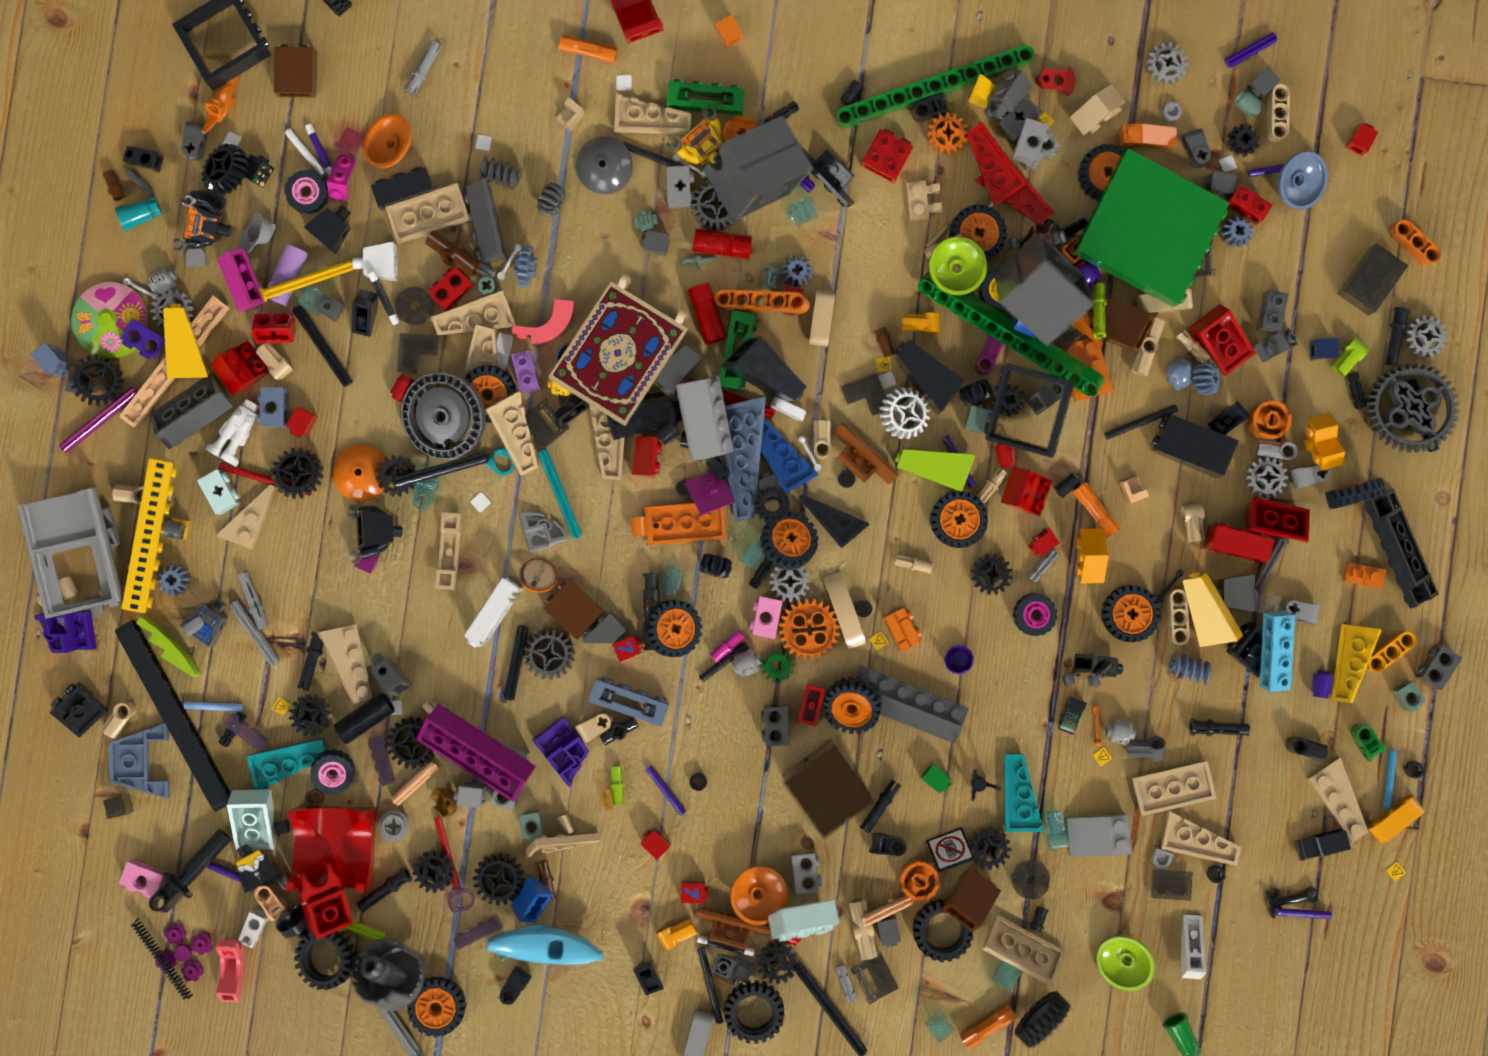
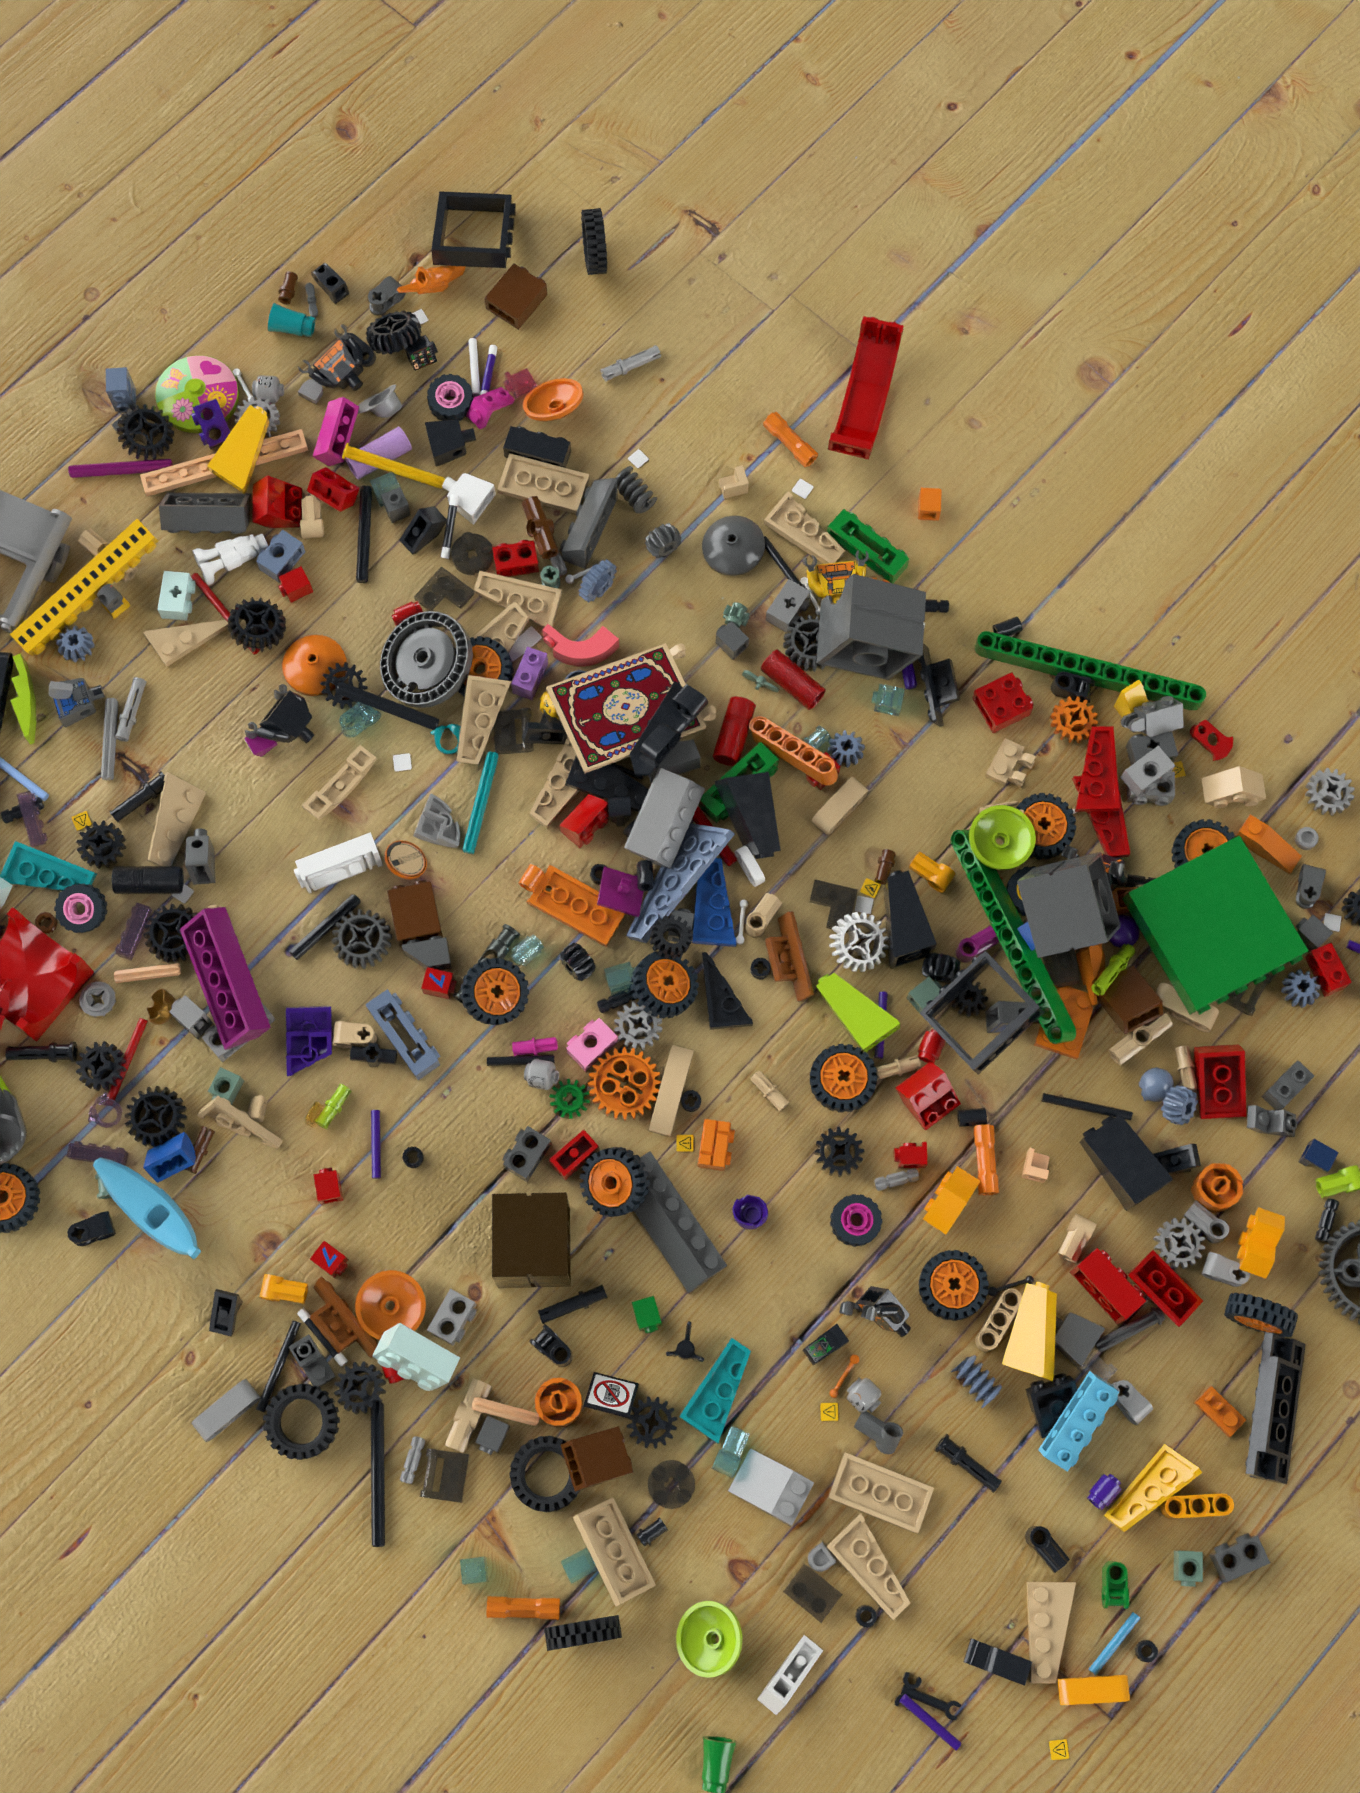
camera: 30 degrees right, 15 degrees down
(660, 352) = (665, 728): none -> black panel

